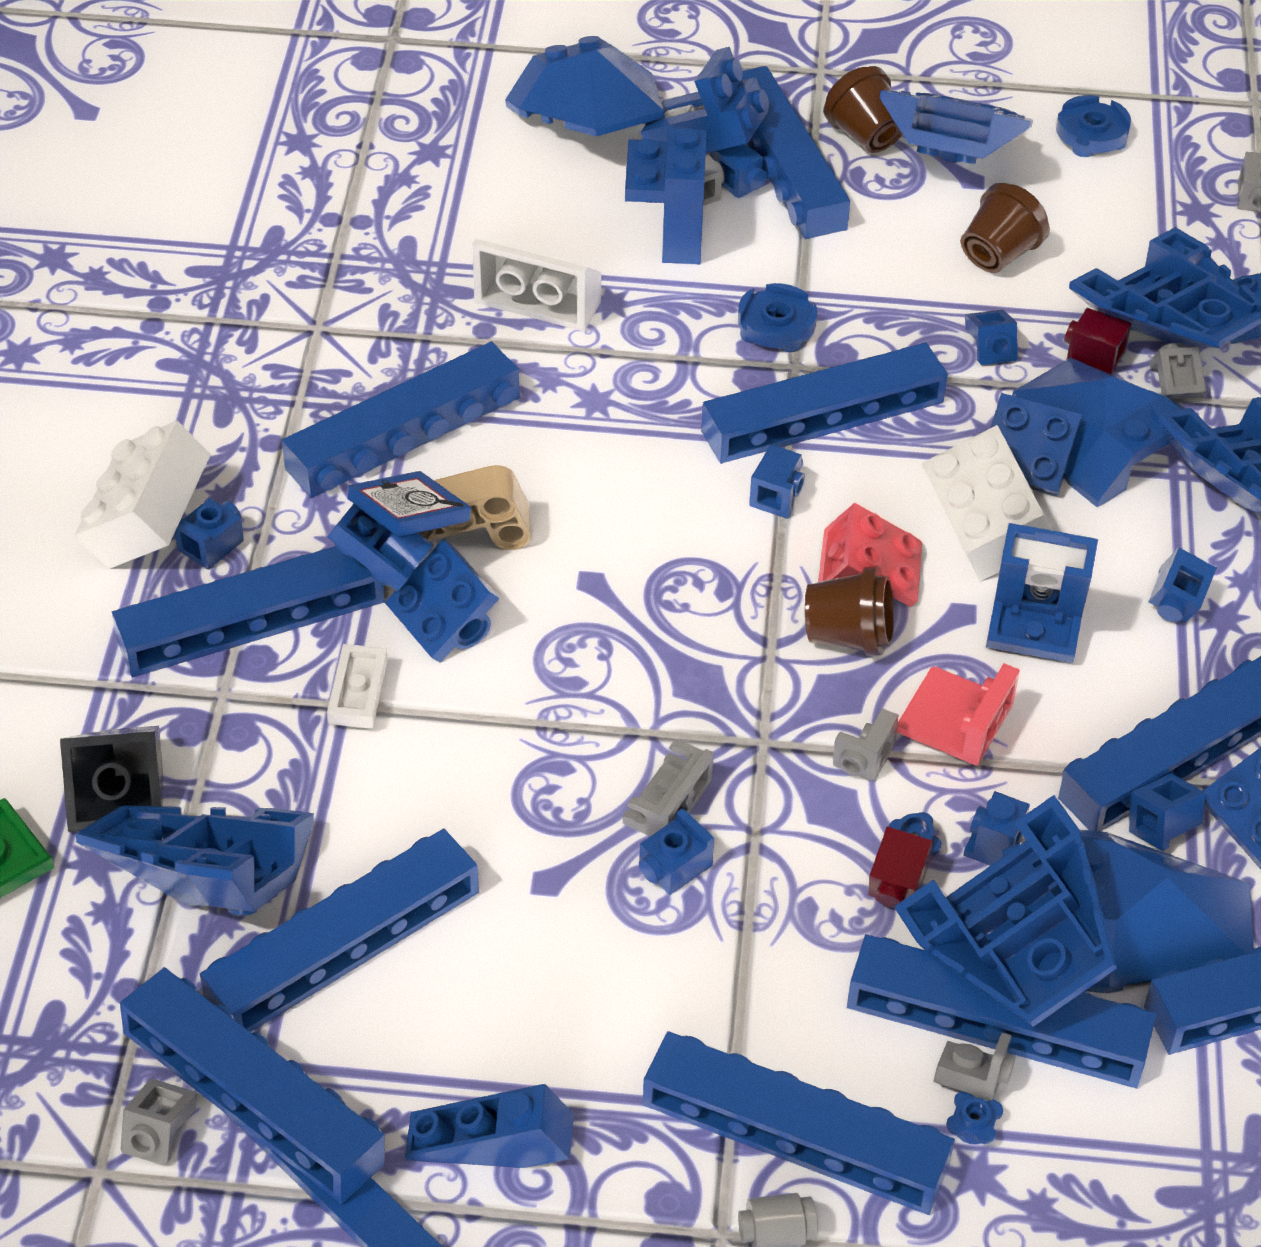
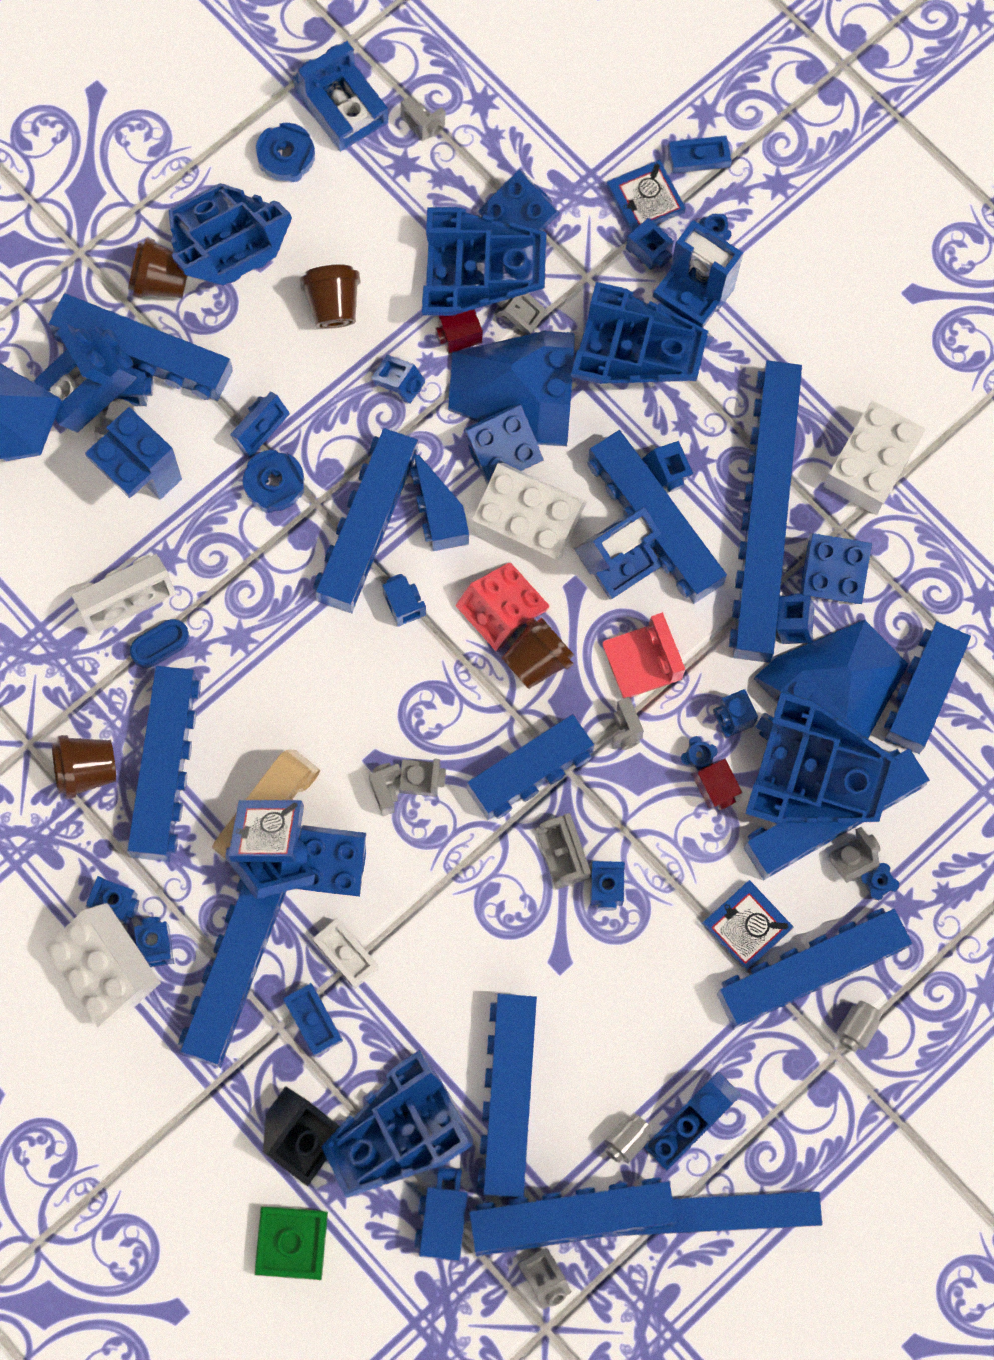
camera: 50 degrees left, 25 degrees up
(120, 967) = (443, 1218): none -> blue brick
(225, 473) = (124, 908): none -> blue brick
(256, 707) = (313, 1020): none -> blue plate
(333, 357) = (82, 764): none -> reddish brown piece
(402, 1081) = (628, 1138): none -> light grey brick
(525, 347) = (159, 643): none -> blue tile
(567, 591) = (385, 794): none -> light grey bracket
(614, 622) = (421, 777): none -> light grey bracket
(727, 697) = (530, 767): none -> blue brick
(778, 1023) = (747, 925): none -> tile
(819, 268) = (264, 418): none -> blue hinge
(895, 455) = (443, 511): none -> blue slope
(1117, 620) = (636, 487): none -> blue brick
(1194, 114) = (326, 79): none -> blue brick

